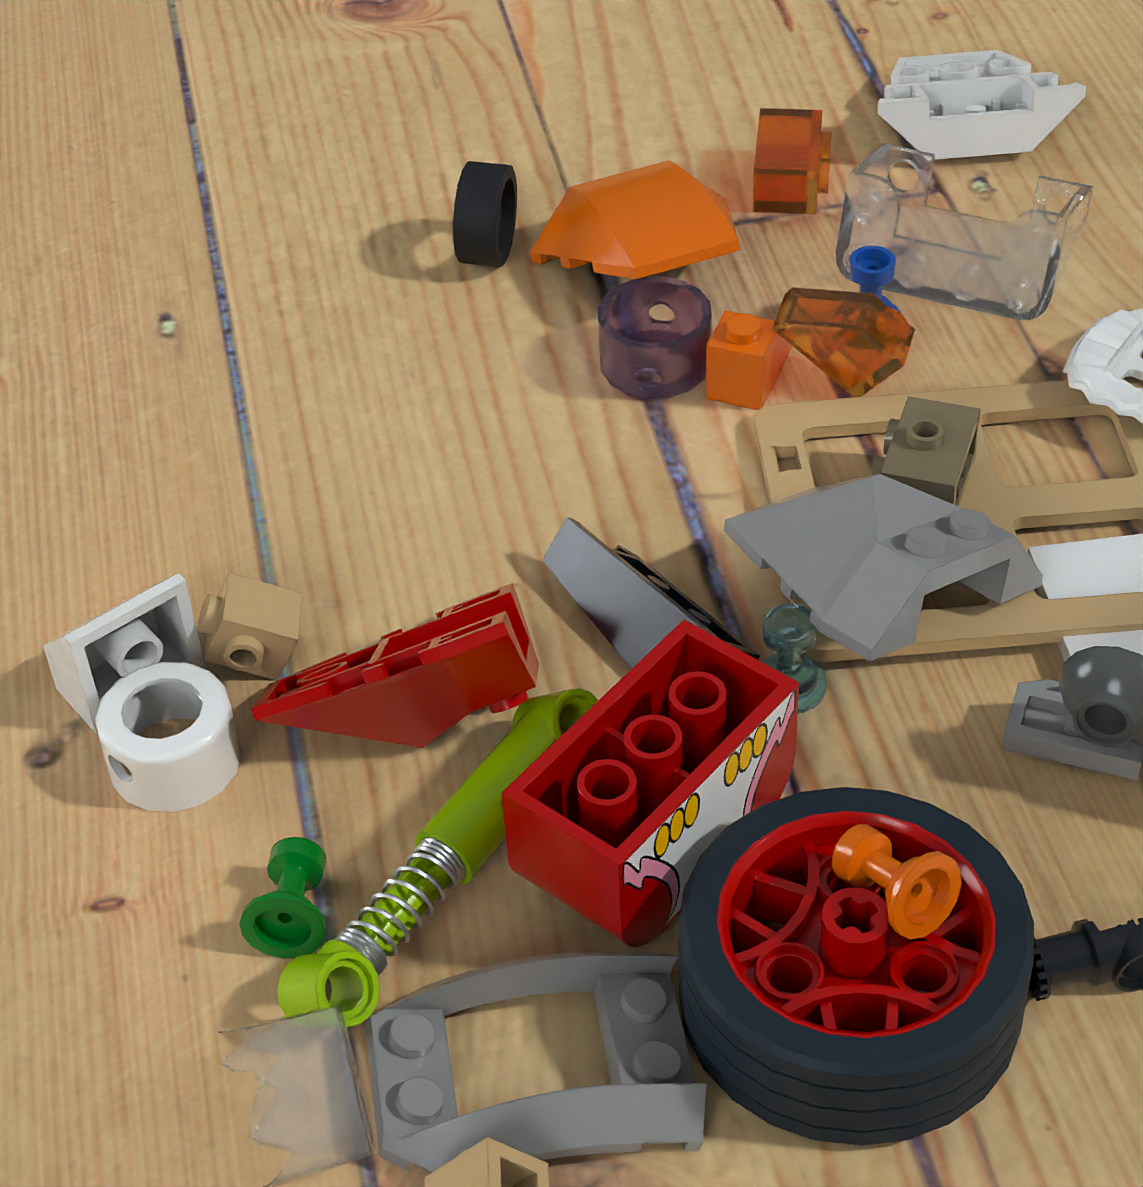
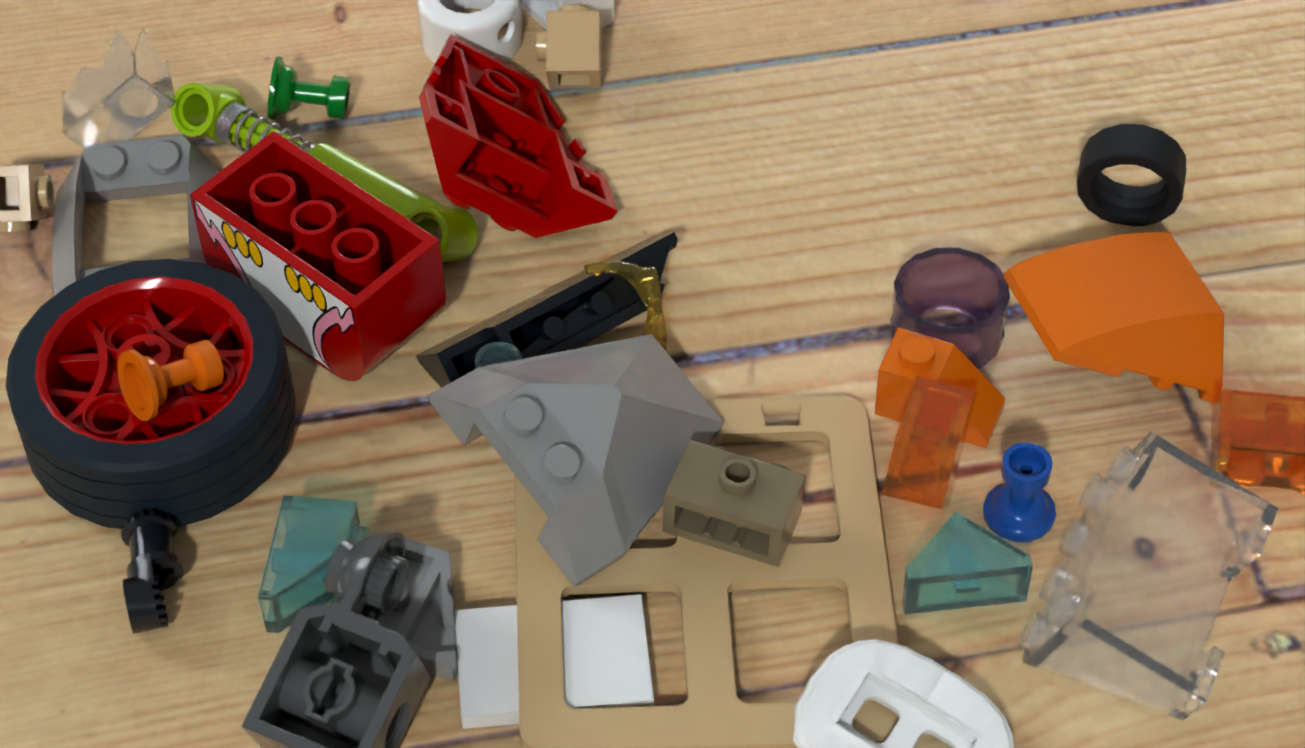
camera: 90 degrees right, 5 degrees up
(694, 567) = (647, 285): none -> clear yellow cap
(960, 336) = (965, 570): none -> clear light blue slope
(1051, 807) = (300, 553): none -> clear light blue slope

